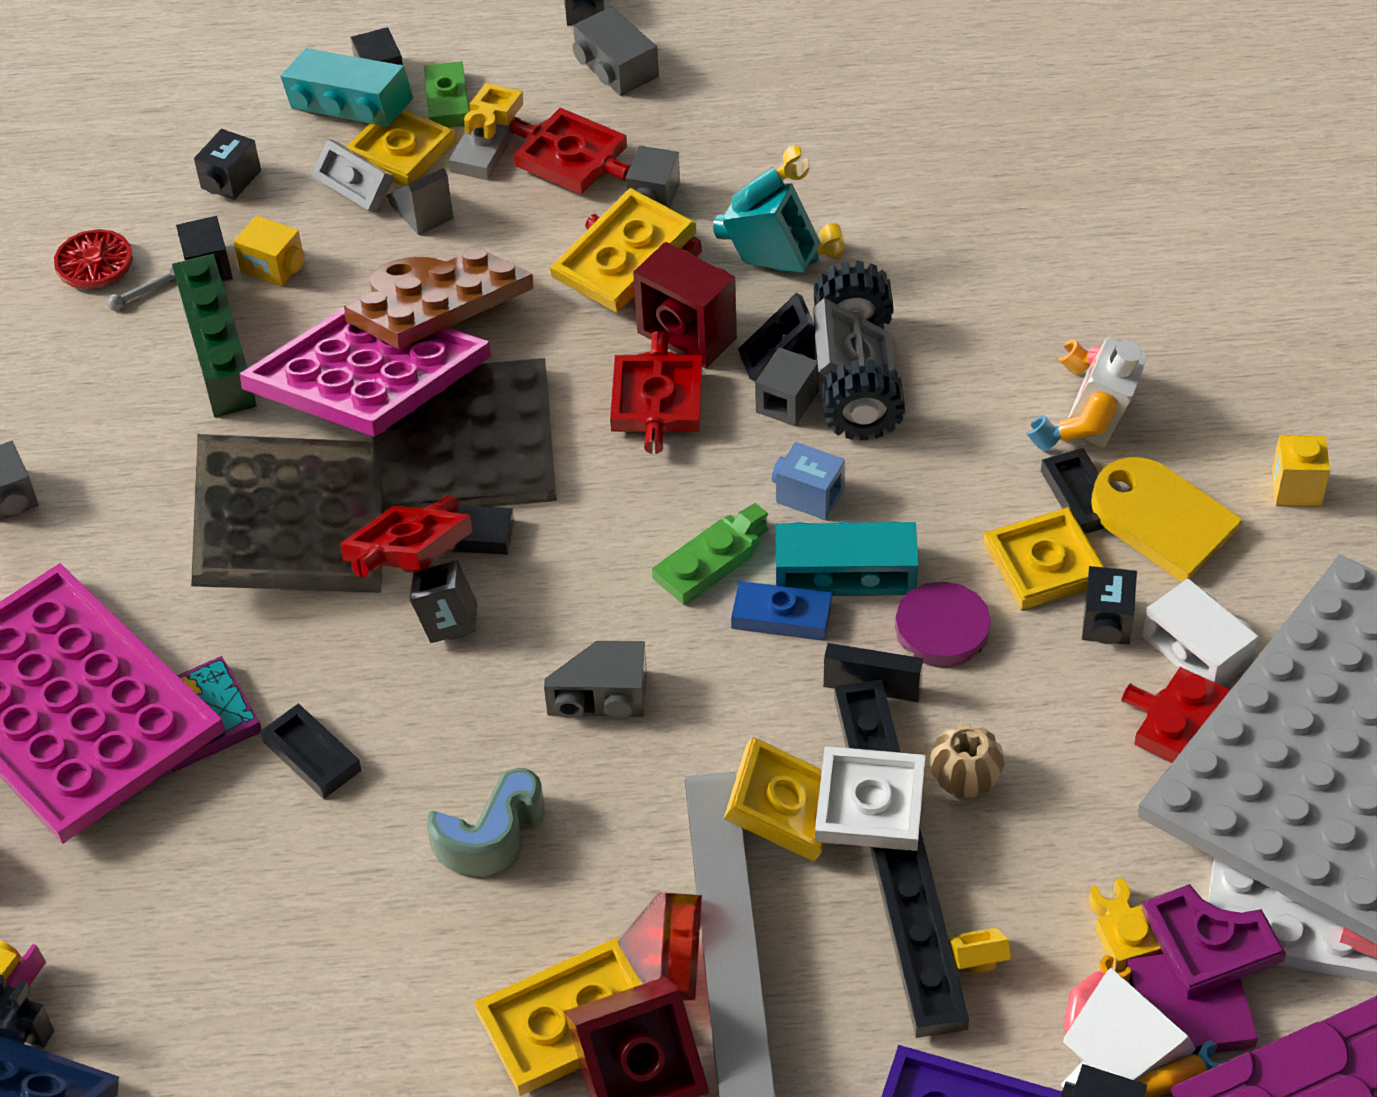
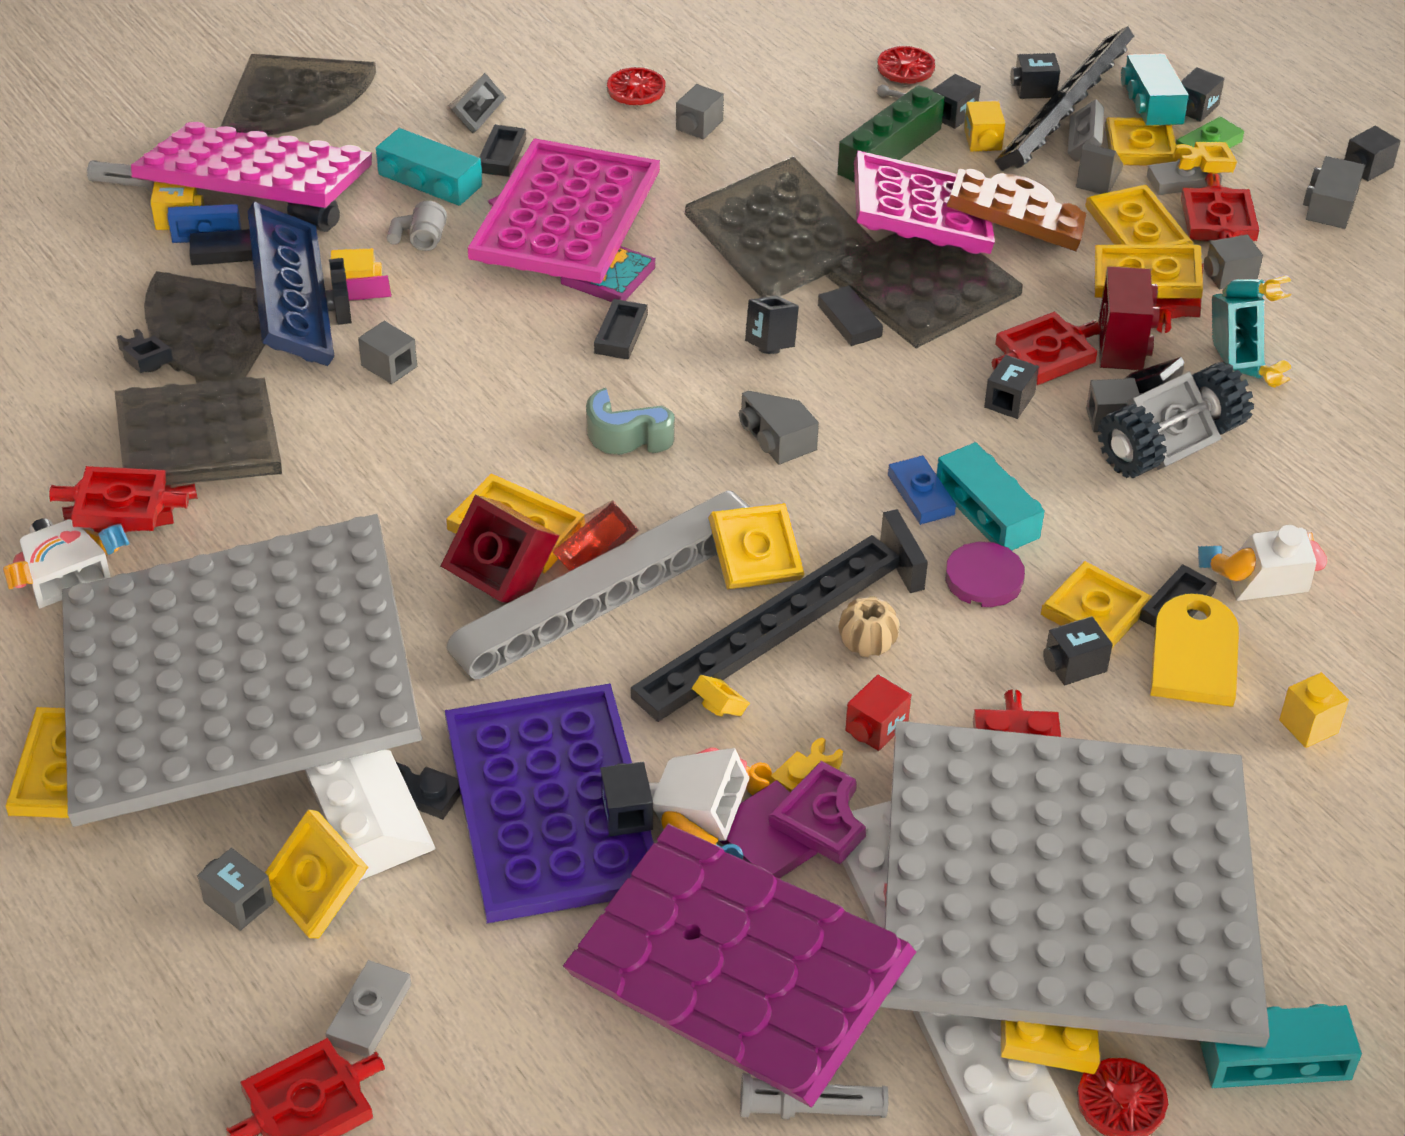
camera: 55 degrees right, 5 degrees down
(163, 1012) = (387, 352): none -> dark grey brick
(287, 165) = (1062, 102): none -> plate
(407, 537) = (801, 280): red plate -> none
(523, 218) = (1135, 218): none -> yellow tile
(697, 451) = (1011, 386): none -> black brick
(711, 554) = (934, 434): bright green hinge -> none
(809, 480) = (1040, 451): medium blue brick -> none
(870, 798) = (786, 582): white plate -> none
(1090, 818) = (875, 710): none -> red brick
(1199, 634) = (1099, 705): white brick -> none

